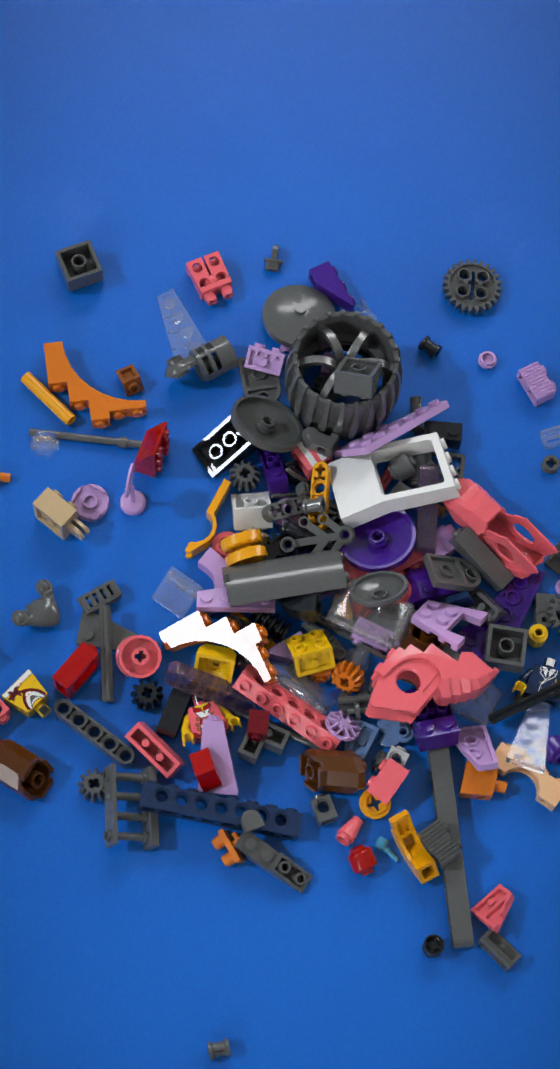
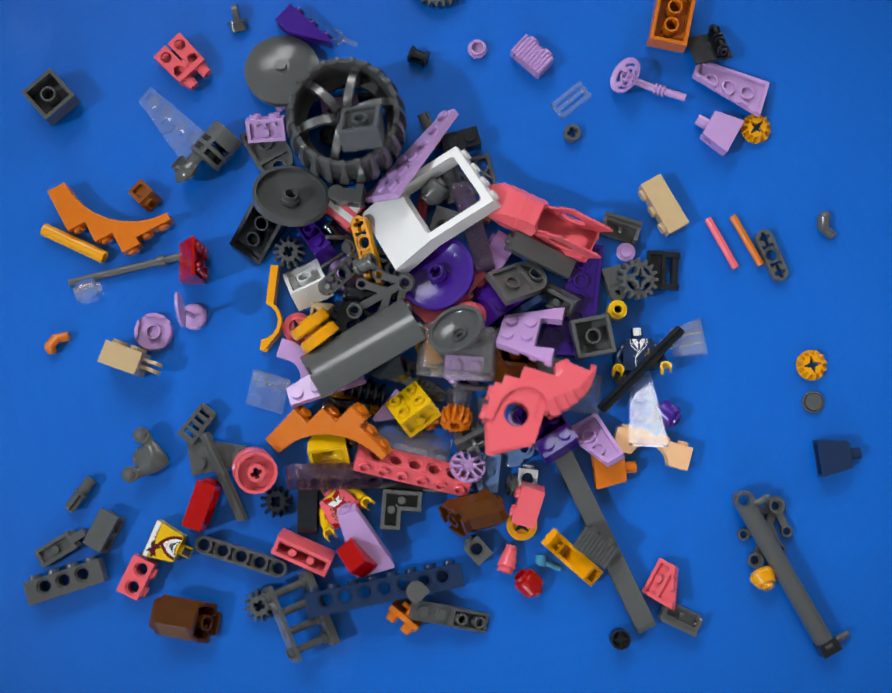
camera: 15 degrees left, 15 degrees up
(258, 725) = (389, 500): dark red brick -> none

